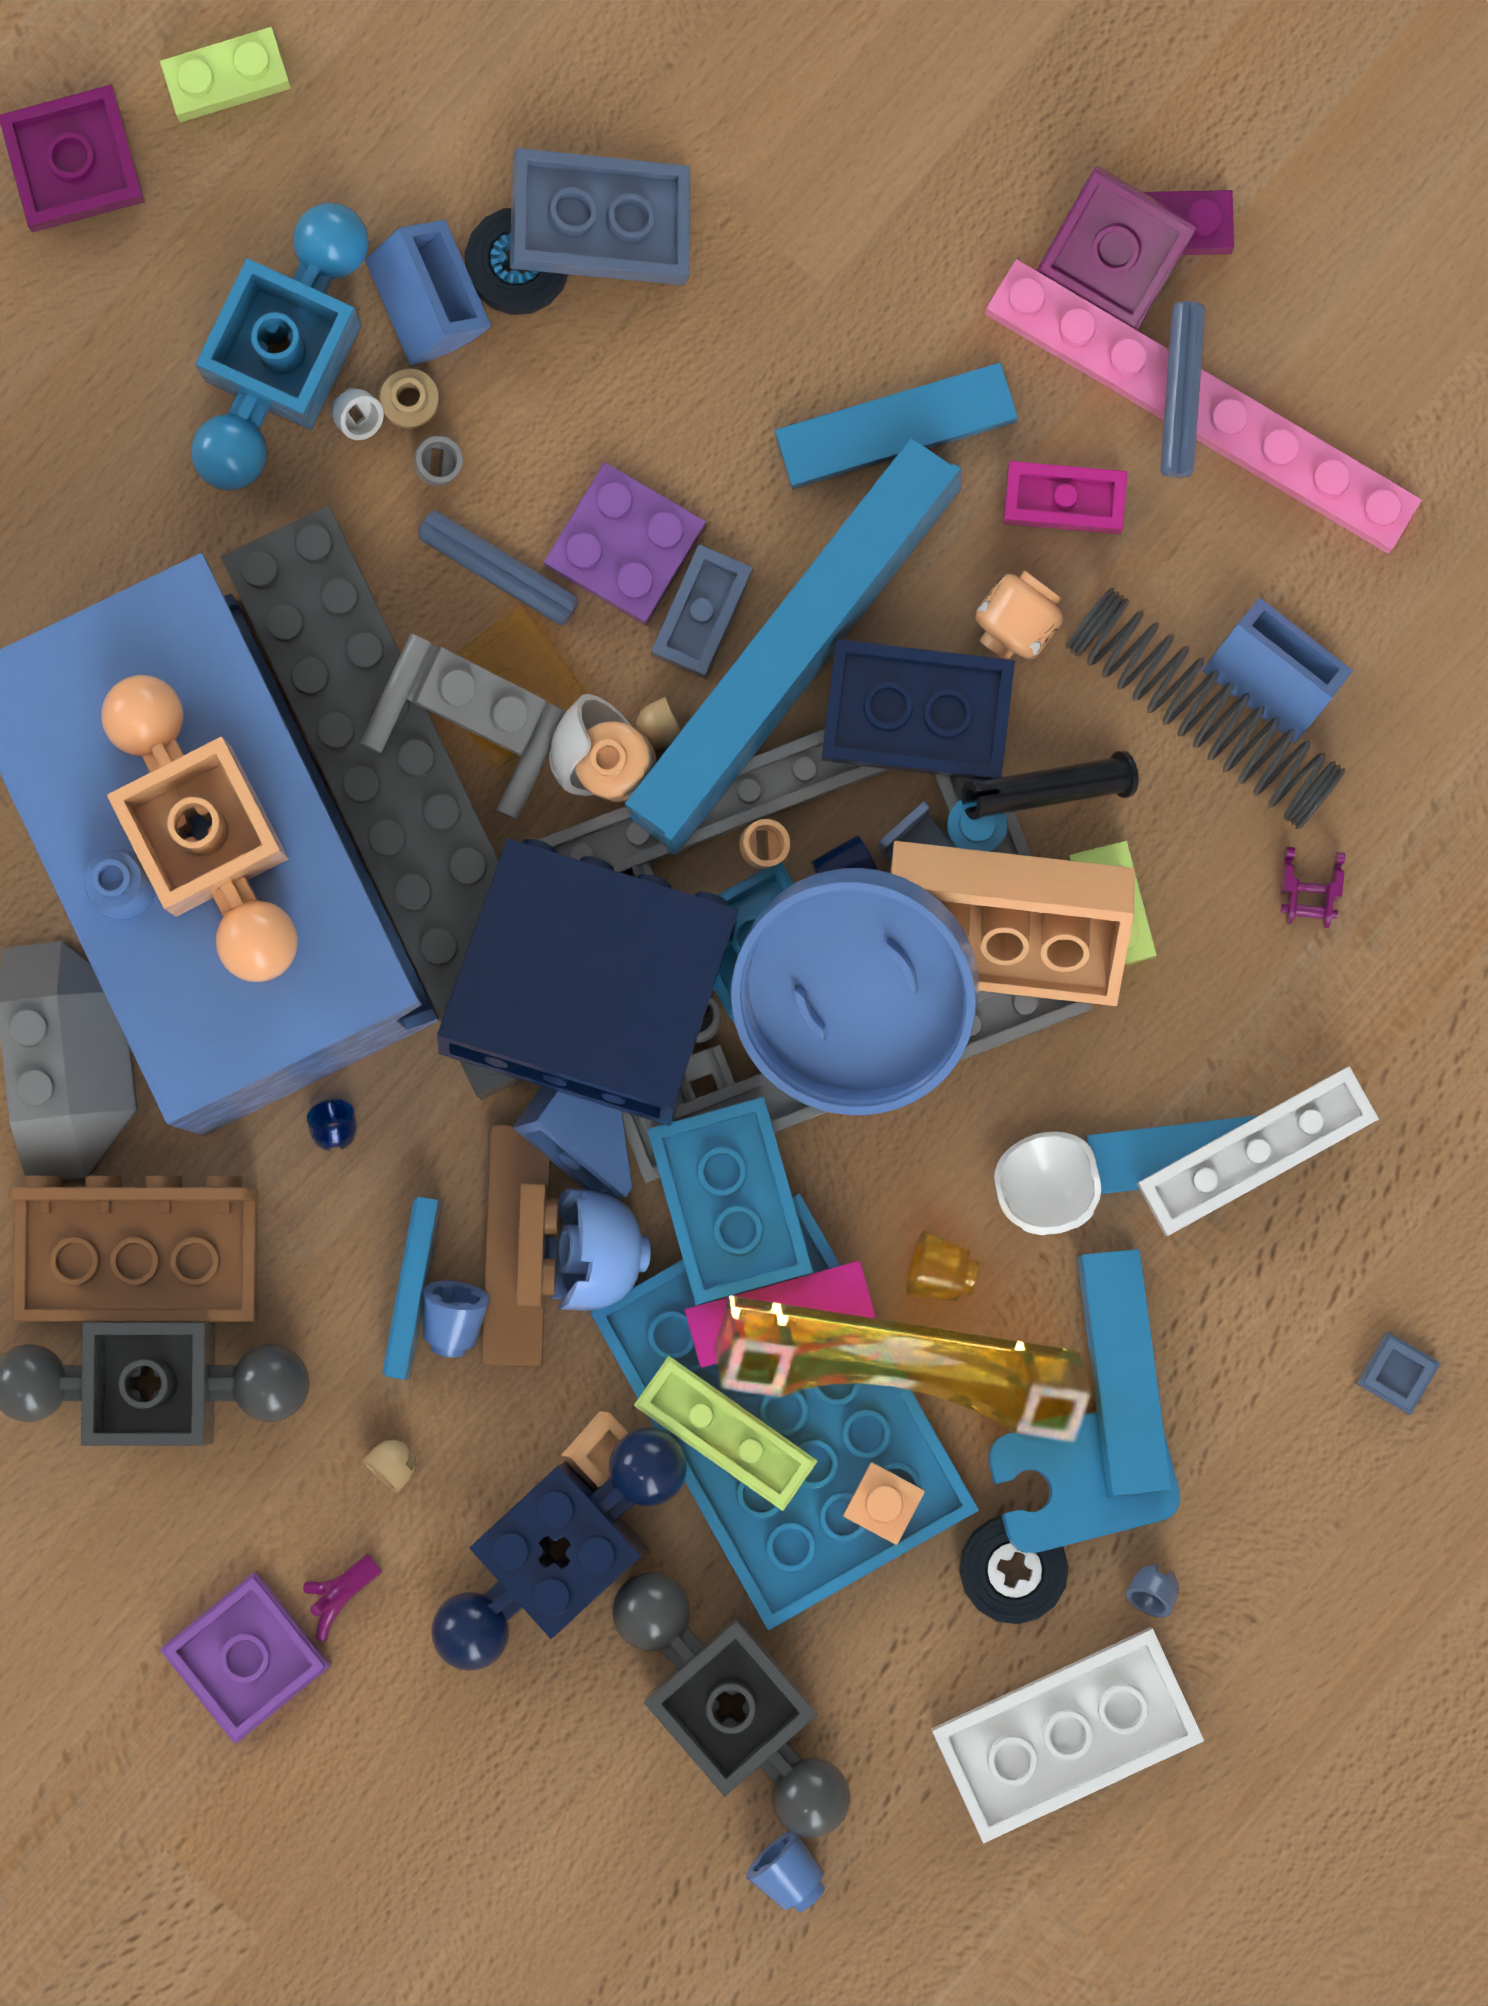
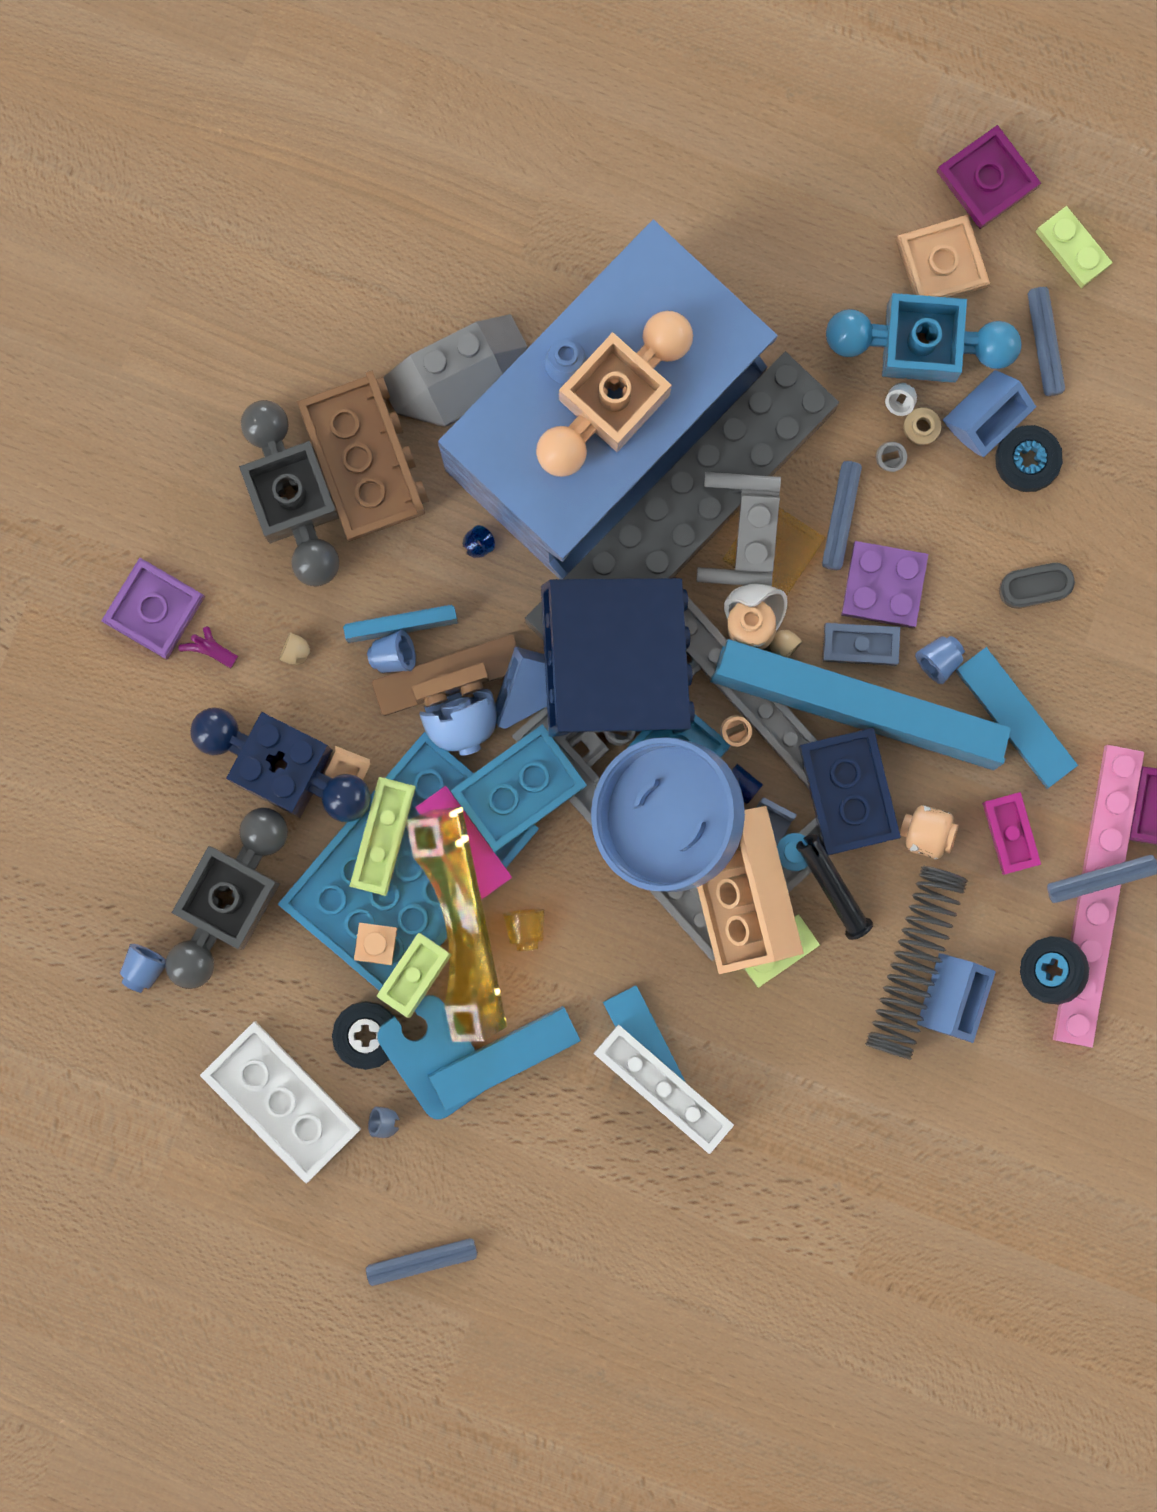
camera: 65 degrees right, 0 degrees up
(170, 273) = (943, 259): none -> light nougat tile
(351, 168) = (1046, 341): none -> sand blue axle
(600, 217) = (1073, 496): sand blue plate -> none
(710, 321) = (1036, 585): none -> dark grey tile
(767, 502) = (940, 658): none -> medium blue hat
(953, 1462) = (414, 975): none -> yellowish green plate
(1048, 1183) = (599, 971): white helmet -> none
(1284, 481) = (1063, 987): none -> black bush
(1331, 891) = (836, 1078): magenta piece -> none
(1381, 1609) = (421, 1262): none -> sand blue axle
(1398, 1373) = (564, 1222): sand blue tile -> none

